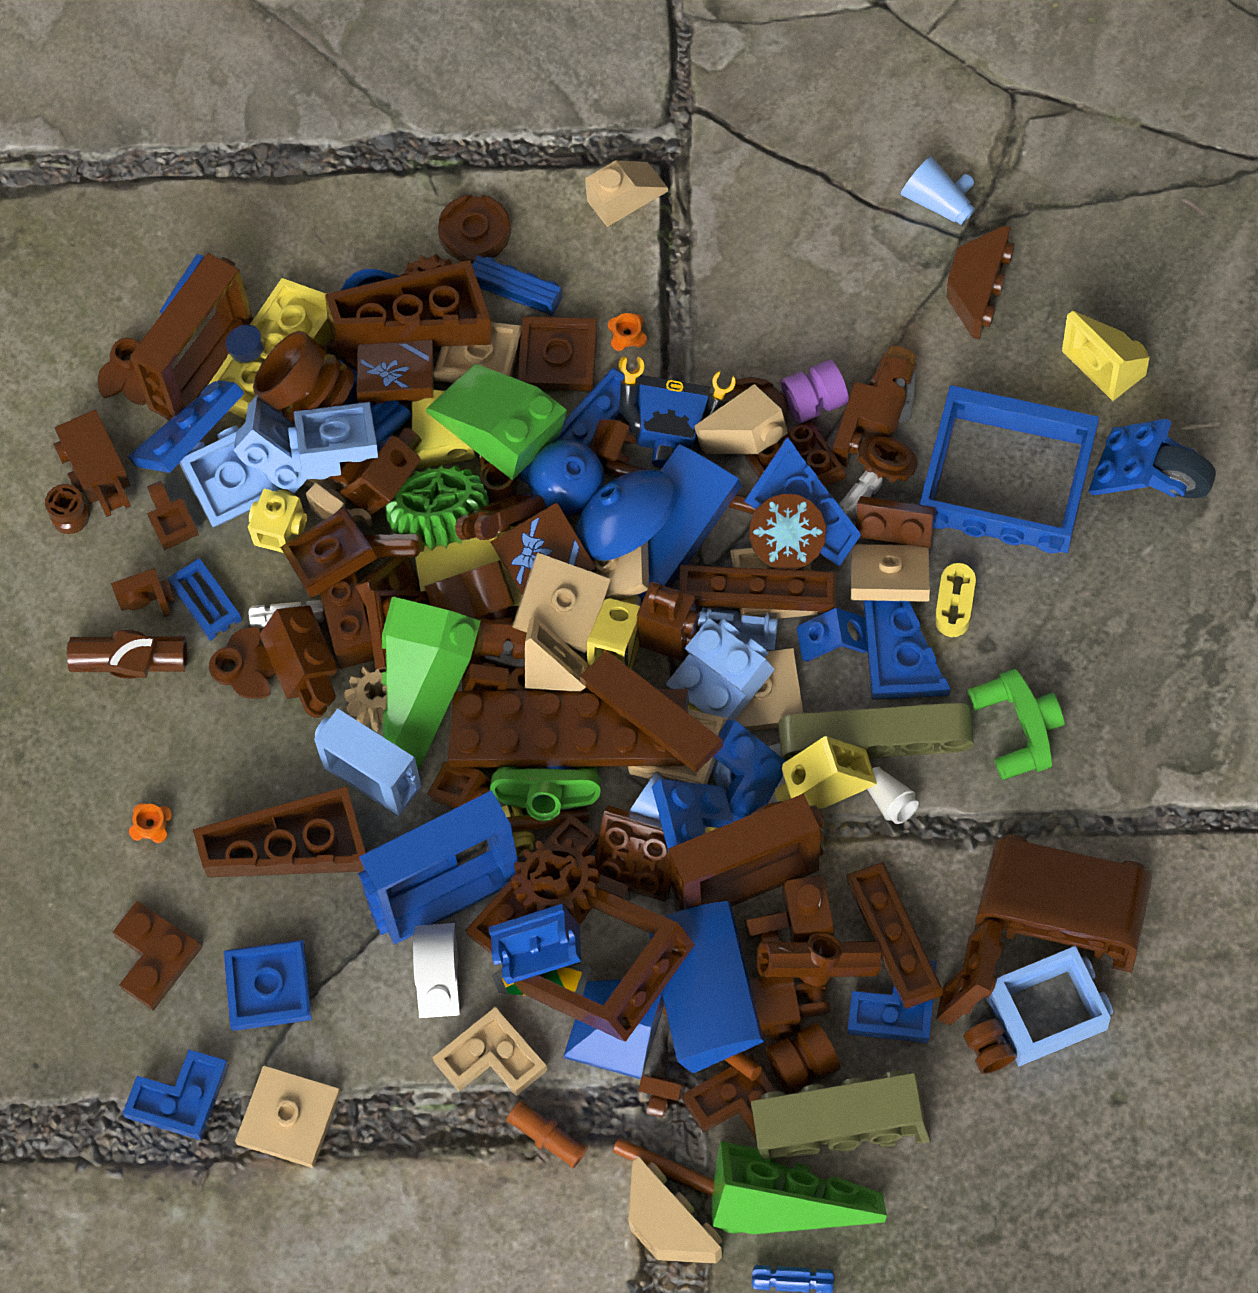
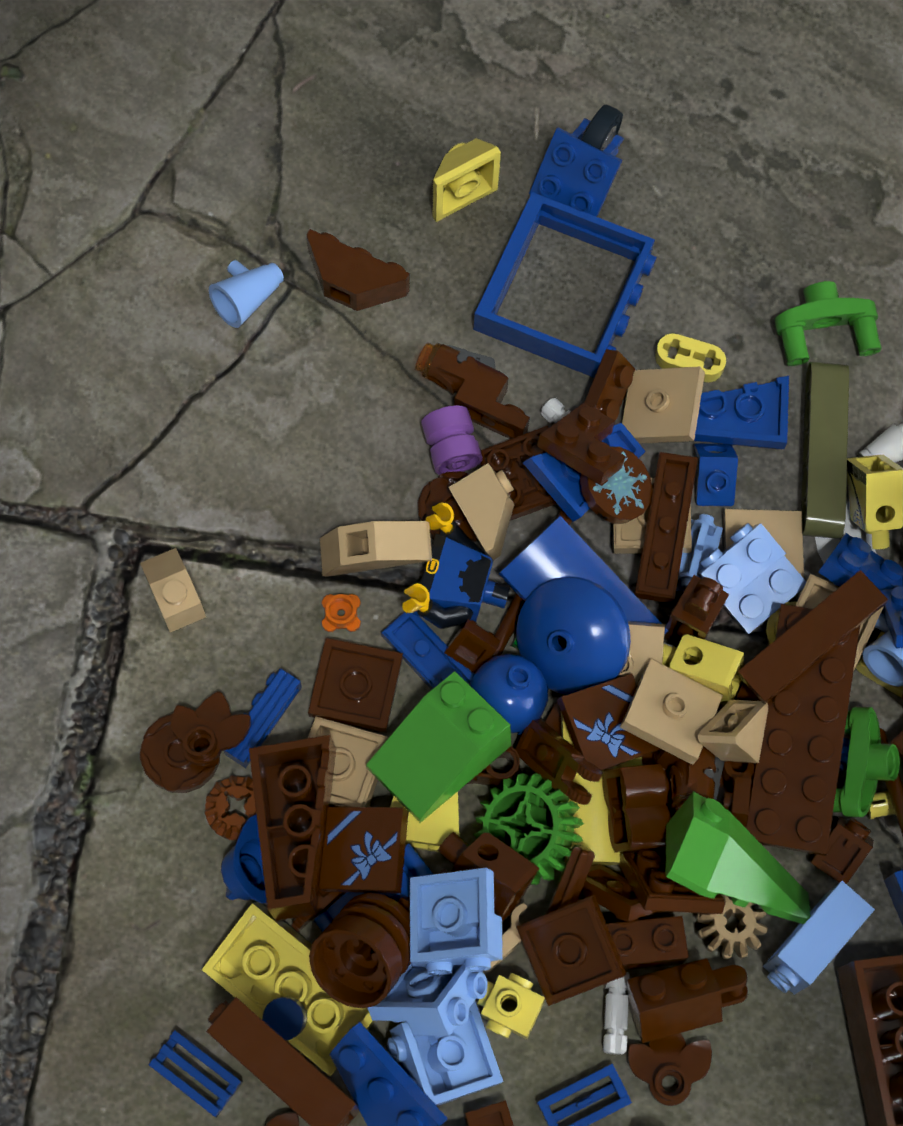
camera: 90 degrees left, 5 degrees up
(496, 239) = (211, 725): none -> reddish brown plate
(686, 338) = (374, 546): none -> tan slope
(816, 478) = (578, 443): none -> reddish brown plate
(880, 451) = (543, 376): reddish brown gear -> none

